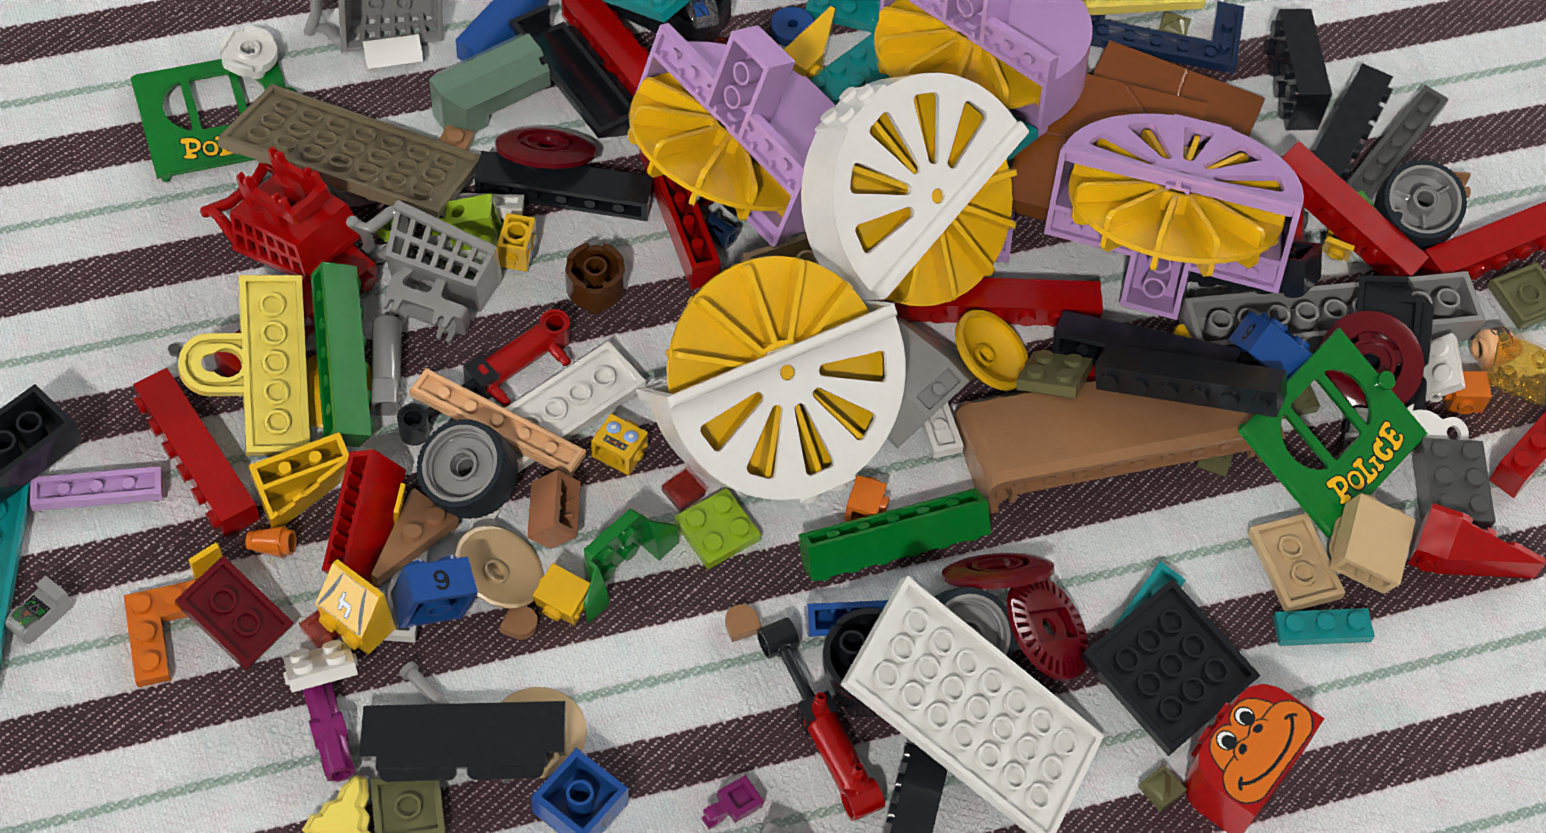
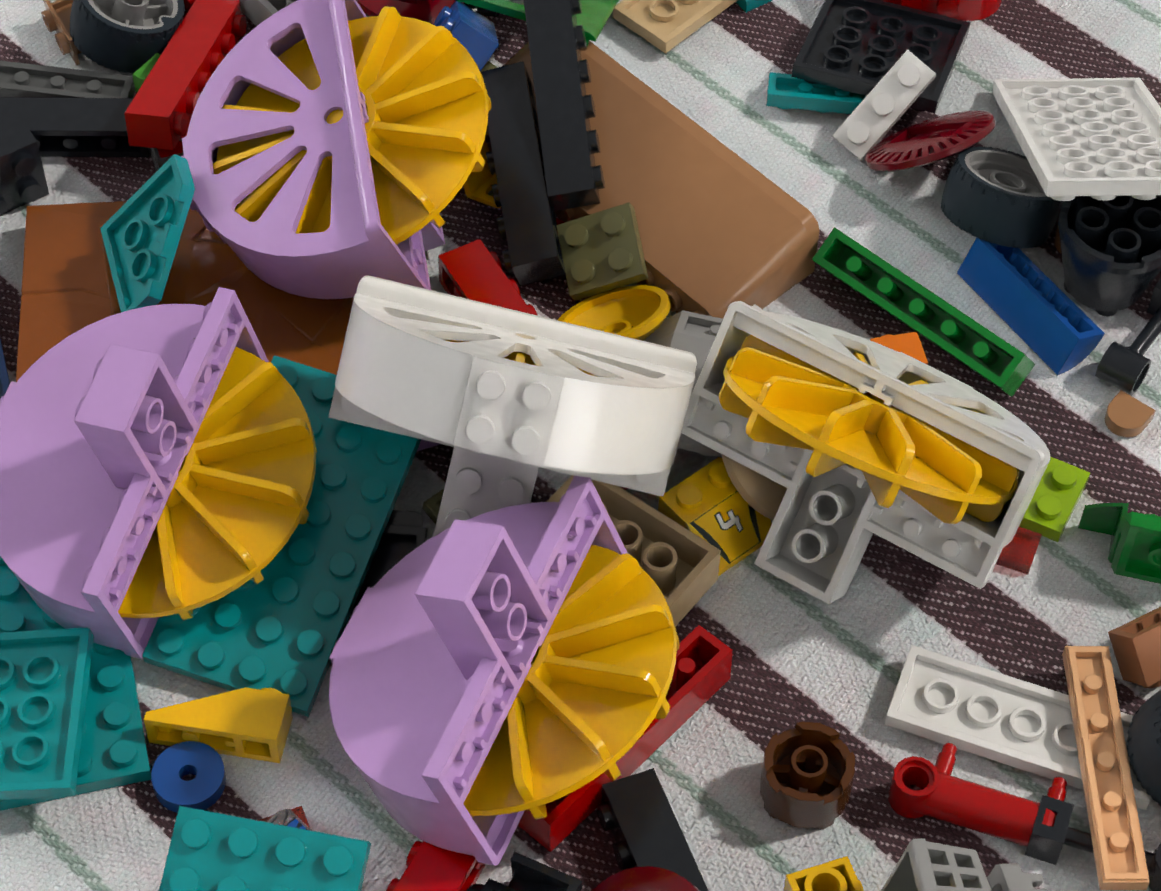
camera: 115 degrees left, 5 degrees down
(619, 444) = (1015, 630): yellow head -> none
(998, 571) = (933, 214): dark red piece -> none
(1100, 618) = (884, 105): none -> white plate
(1159, 99) = (146, 234): none -> teal plate
(1162, 788) = (1005, 26): olive tile -> none

